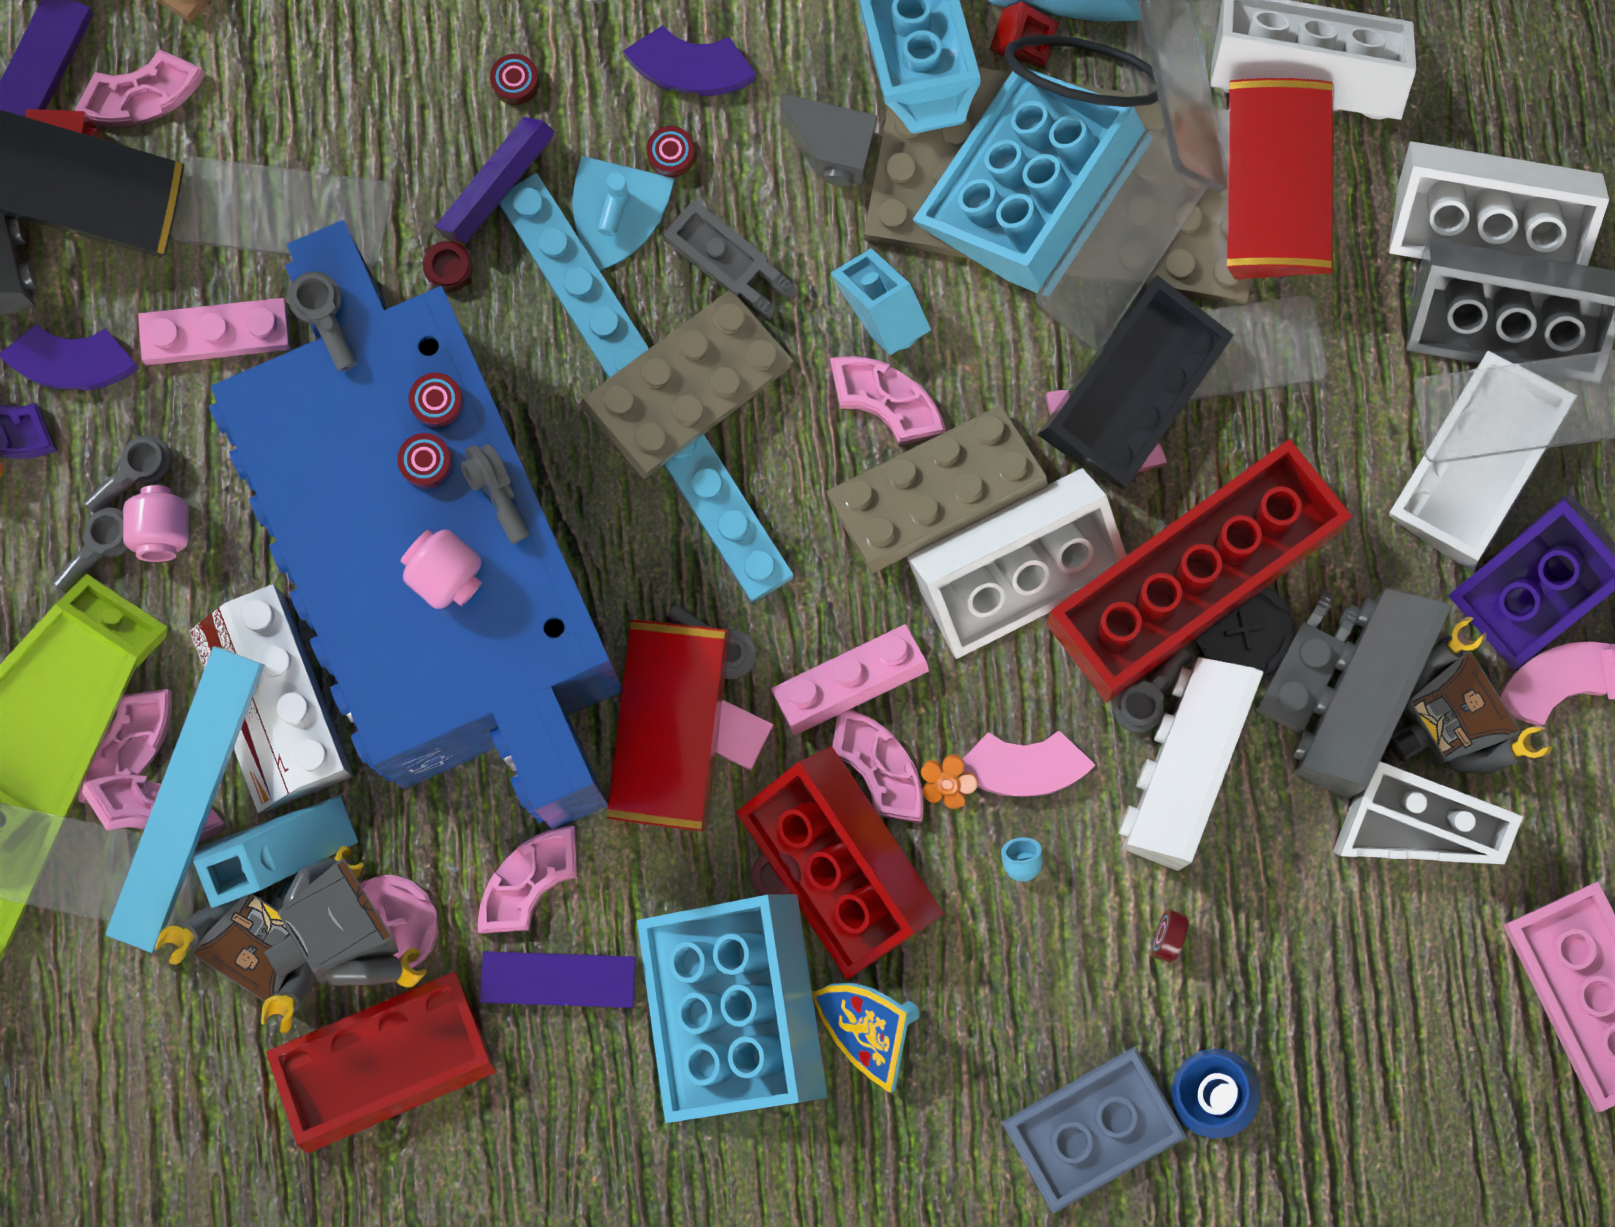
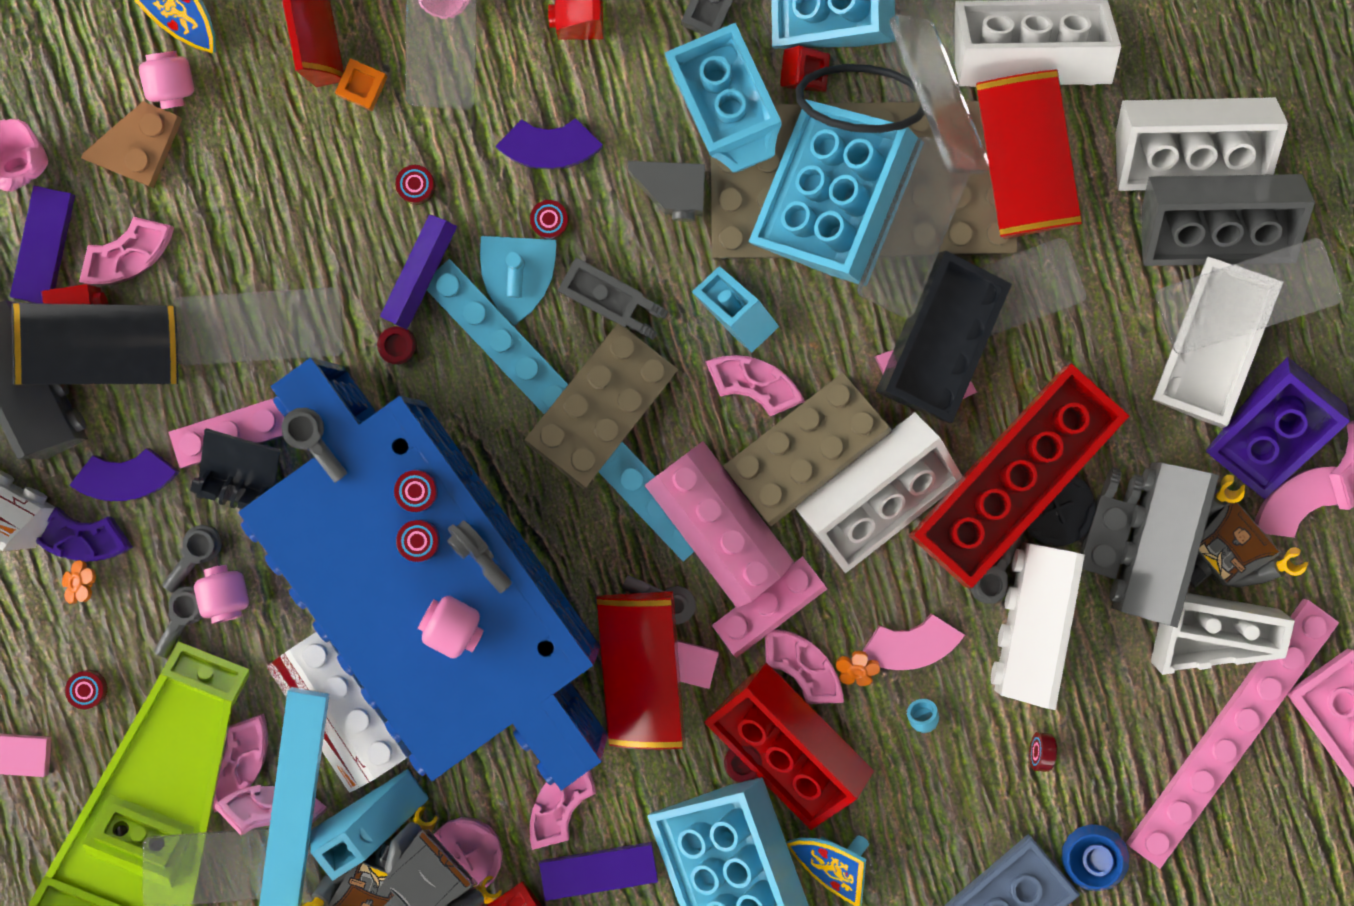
camera: 10 degrees left, 10 degrees up
(199, 359) = (234, 469): none -> black hinge
(805, 557) = (720, 525): none -> bright pink slope
(1421, 966) = (1229, 738): none -> bright pink plate

